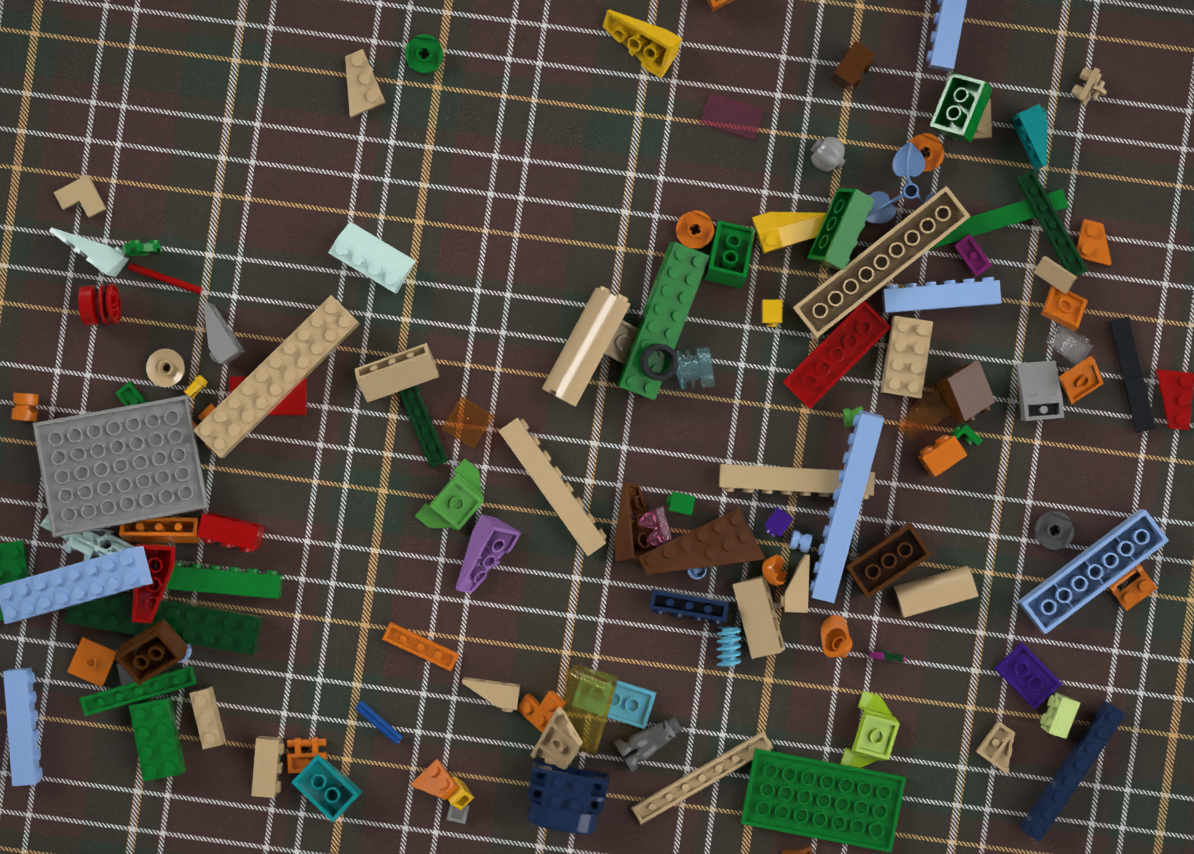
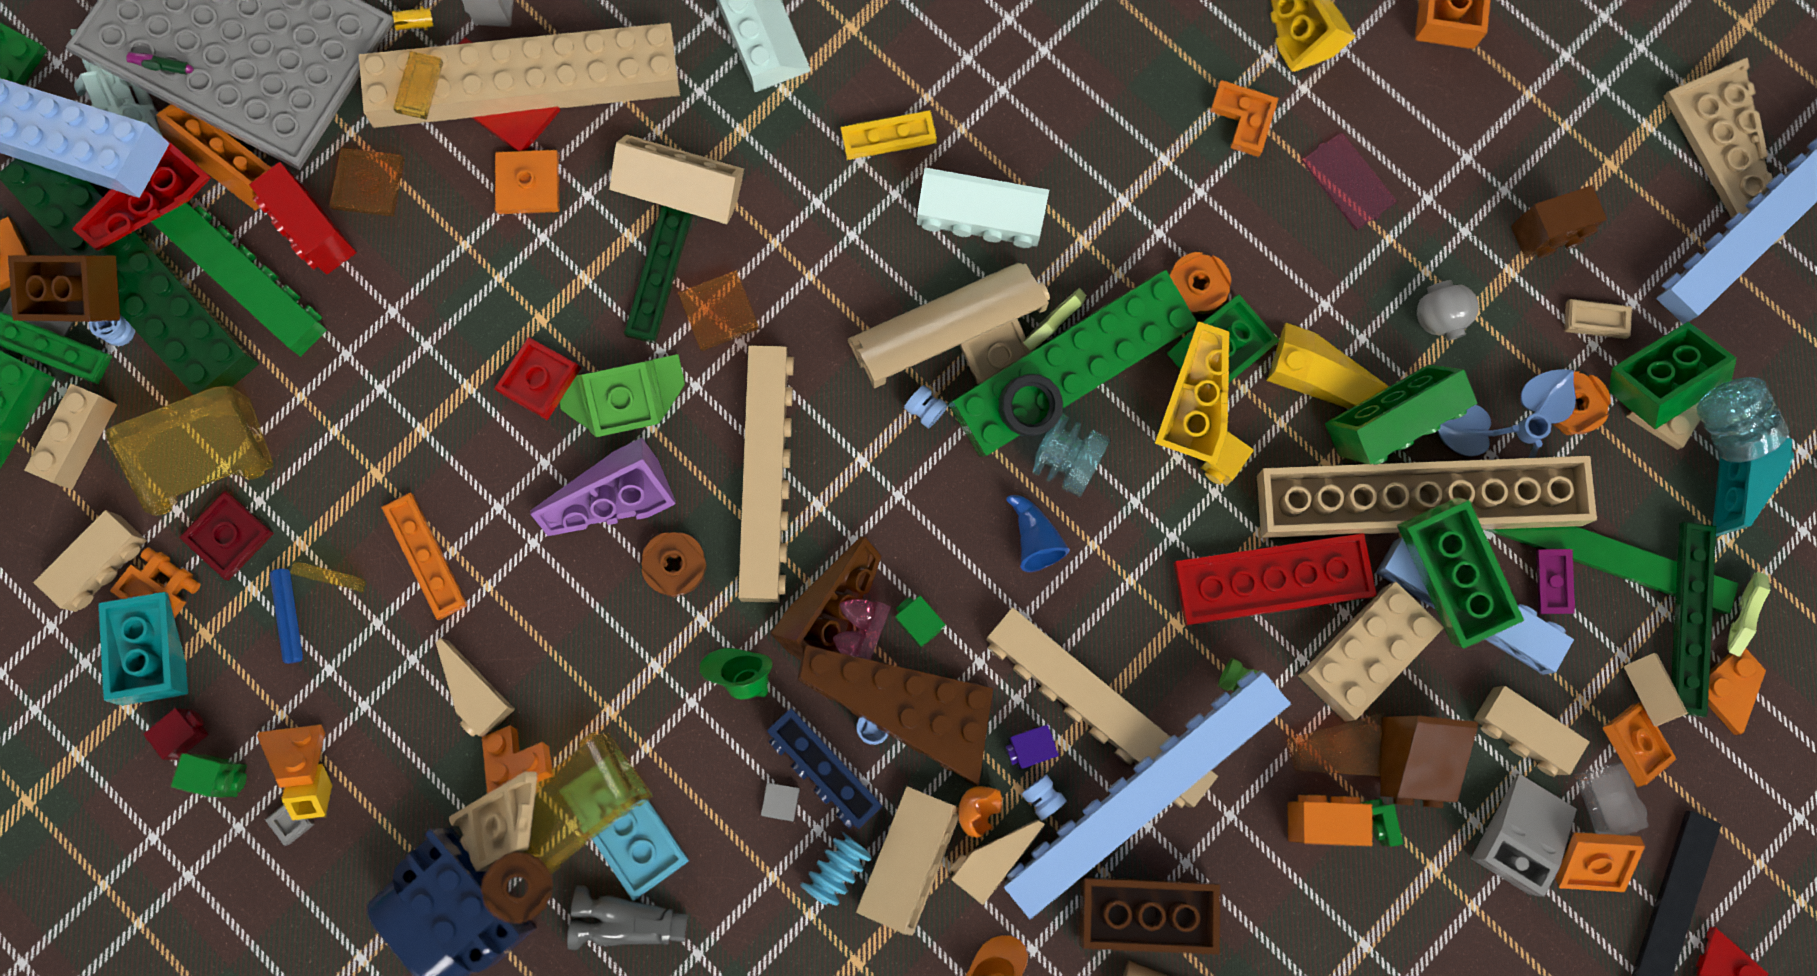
camera: 30 degrees right, 10 degrees down
(103, 511) = (159, 63): none -> dark green piece
(237, 425) = (418, 85): none -> clear yellow tile
(243, 487) = (367, 182): none -> clear orange plate
(271, 680) = (189, 446): none -> clear yellow windscreen
(318, 707) = (226, 535): none -> dark red tile
(321, 427) = (527, 182): none -> orange plate
(374, 812) = (176, 733): none -> dark red brick
(382, 691) = (328, 577): none -> clear yellow tile
(406, 522) = (537, 378): none -> red tile
(407, 818) = (209, 775): none -> green brick
(482, 267) = (888, 135): none -> yellow plate
(536, 553) = (655, 564): none -> dark orange plate
(559, 274) = (981, 207): none -> light aqua slope
(580, 762) = (501, 872): none -> reddish brown tile
(610, 395) = (926, 406): none -> light blue wheel
(612, 590) = (739, 671): none -> green piece
(637, 303) = (1055, 319): none -> yellowish green tile
(657, 116) = (1251, 110): none -> orange plate
(678, 634) = (780, 802): none -> light grey tile
(709, 420) = (1038, 537): none -> blue hat
(739, 299) = (1199, 404): none -> yellow wedge
(906, 98) = (1598, 319): none -> tan tile
(921, 293) = (1460, 572): none -> green brick
(1009, 110) = (1743, 419): none -> clear light blue wheel
(1009, 339) = (1530, 731): none -> tan brick
(1077, 206) = (1751, 603): none -> yellowish green tile

